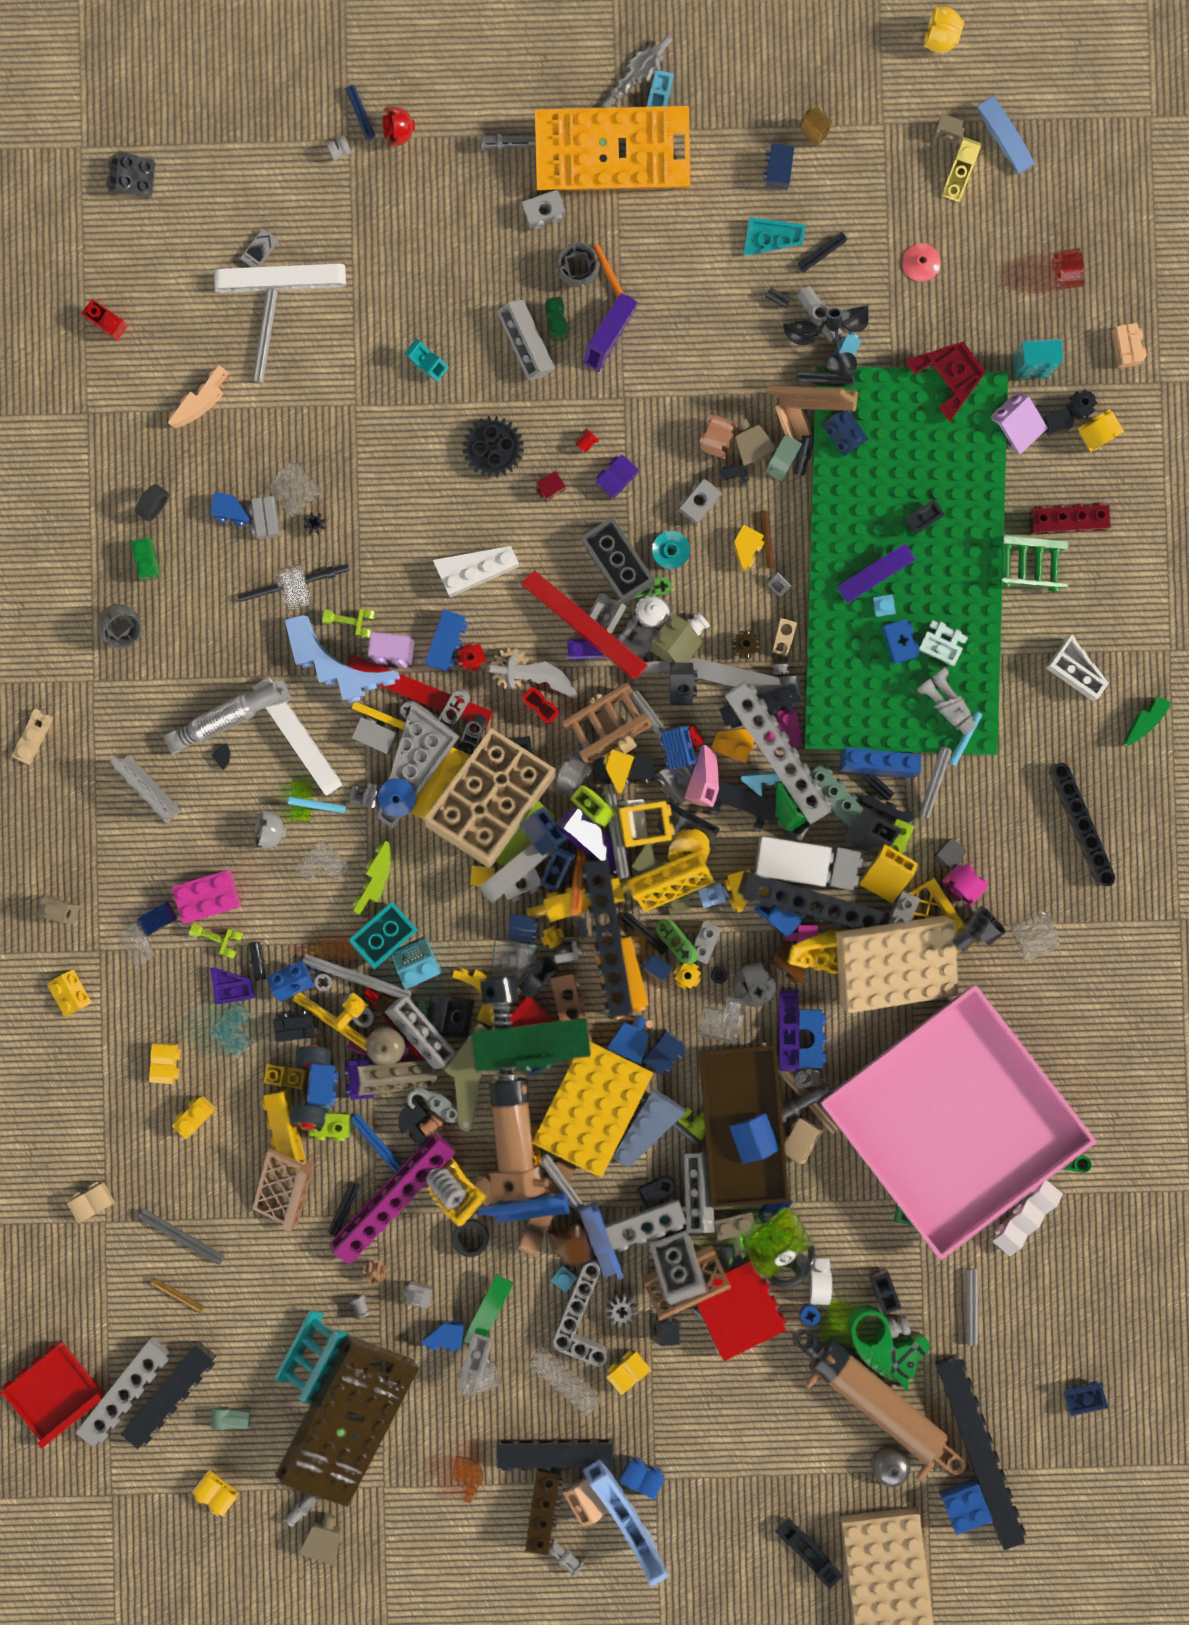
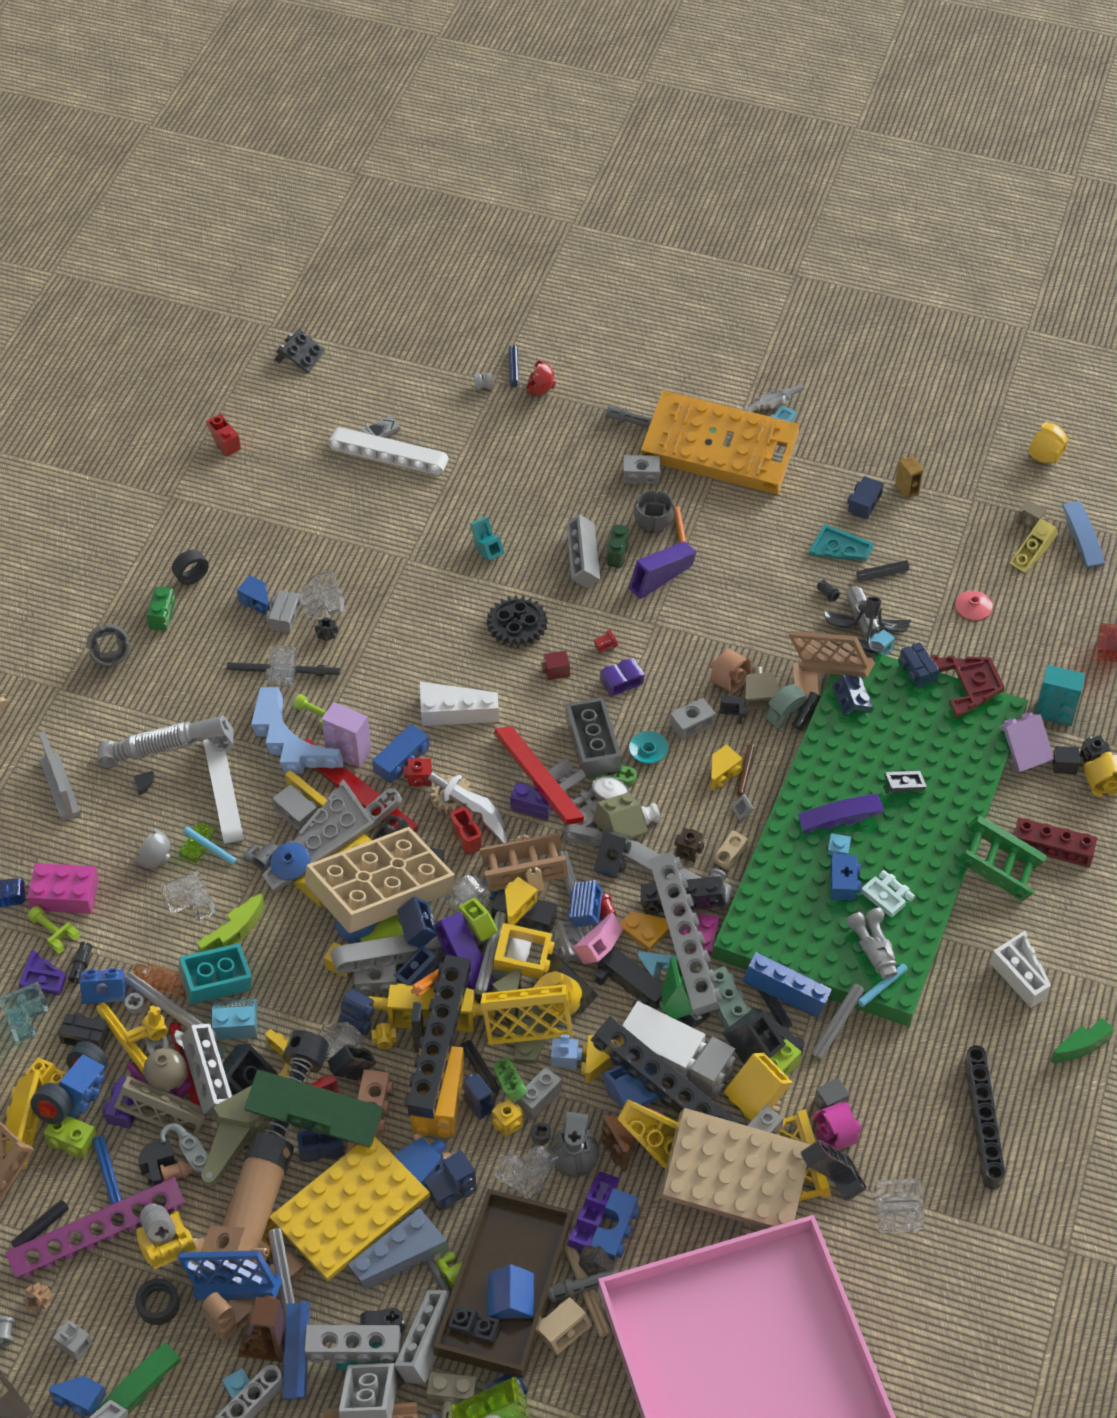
camera: 20 degrees right, 35 degrees down
(195, 406) = (270, 515): light nougat slope -> none
(265, 334) = (354, 486): light grey axle -> none
(565, 955) = (392, 1054): light grey bracket -> none
(735, 1174) = (473, 1325): none -> black slope
(897, 374) = (918, 665): none -> dark blue brick

